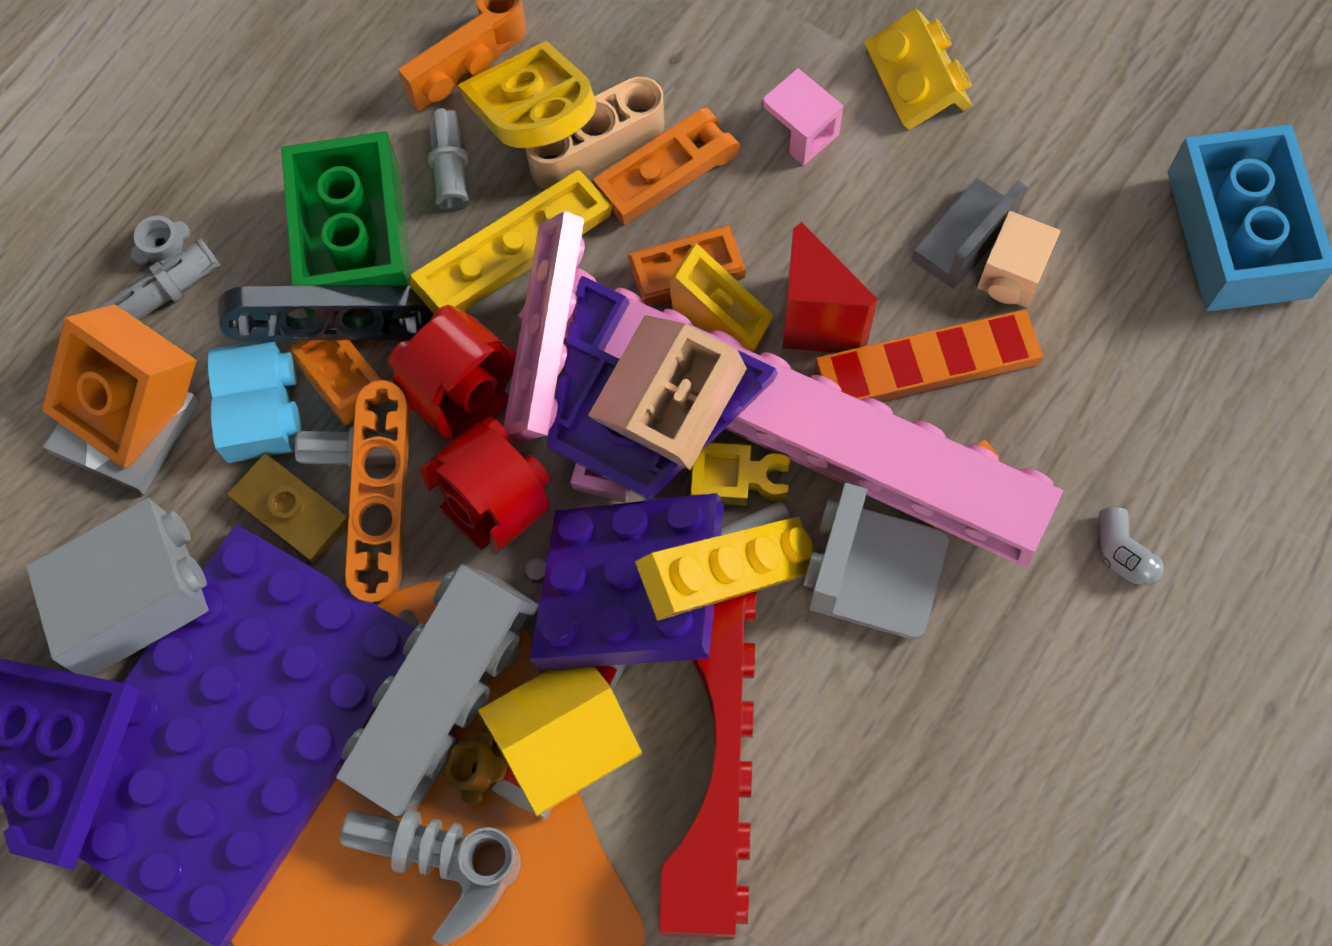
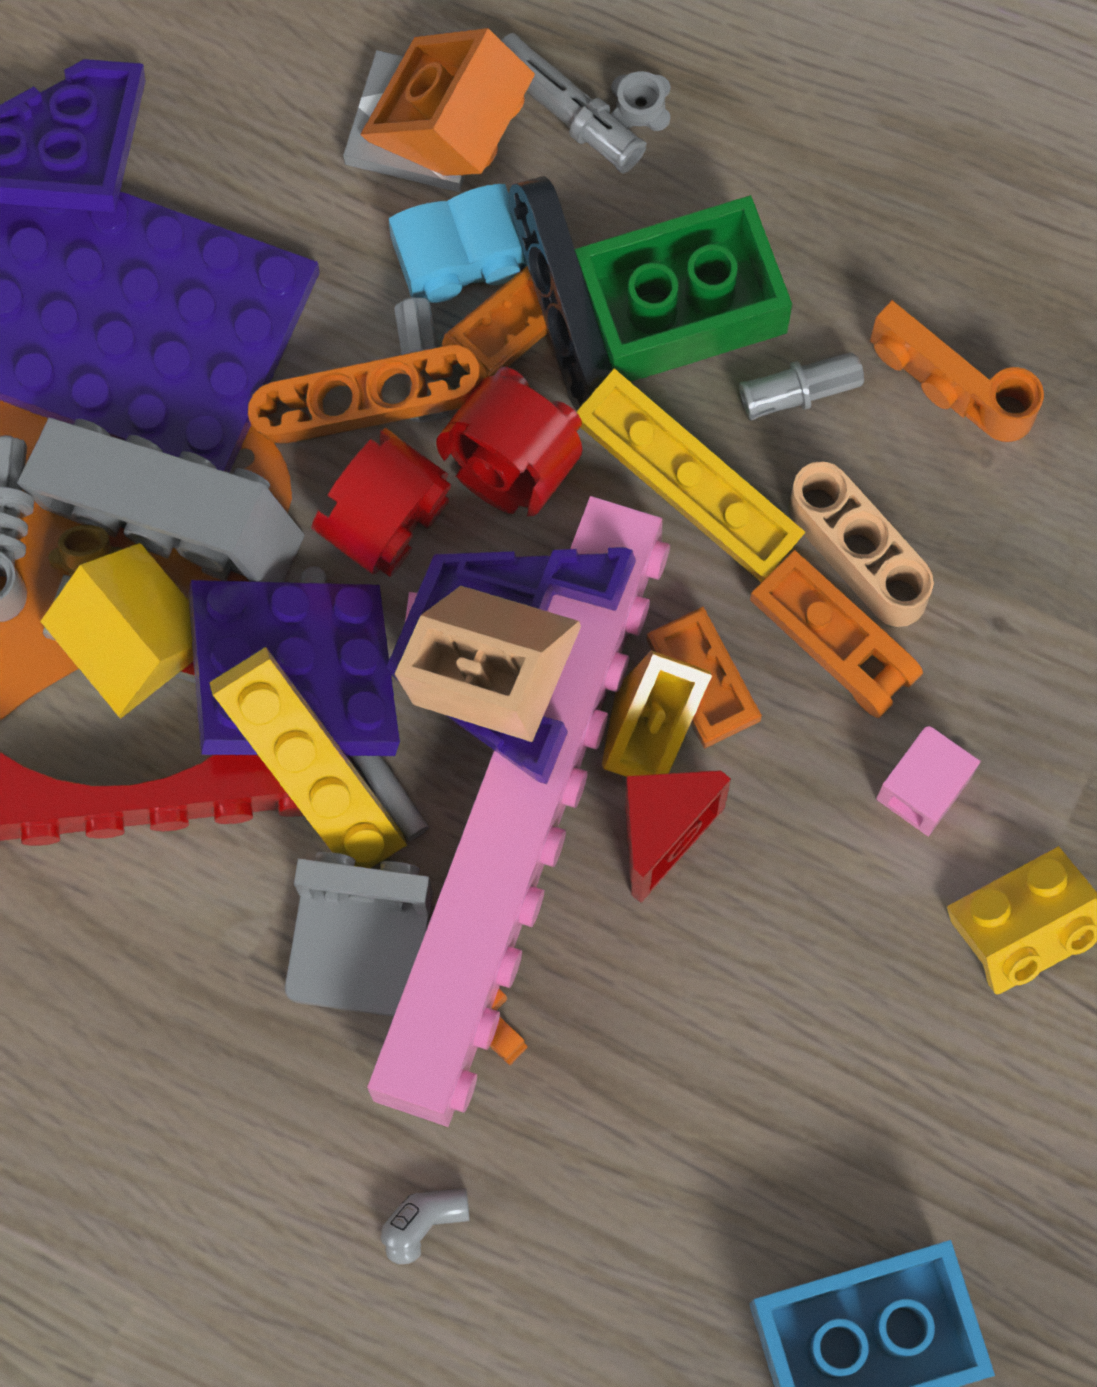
camera: 80 degrees right, 5 degrees up
(117, 588) = (222, 163): light grey brick -> none
(289, 508) = (346, 310): pearl gold plate -> none
(531, 98) = (892, 454): yellow tile -> none
(546, 311) = (538, 524): bright pink plate -> none
(731, 474) = (446, 762): yellow plate -> none
(935, 358) = (629, 974): tile -> none
(967, 231) = (808, 1001): flat silver panel -> none
(1018, 260) = (770, 1062): light nougat brick -> none

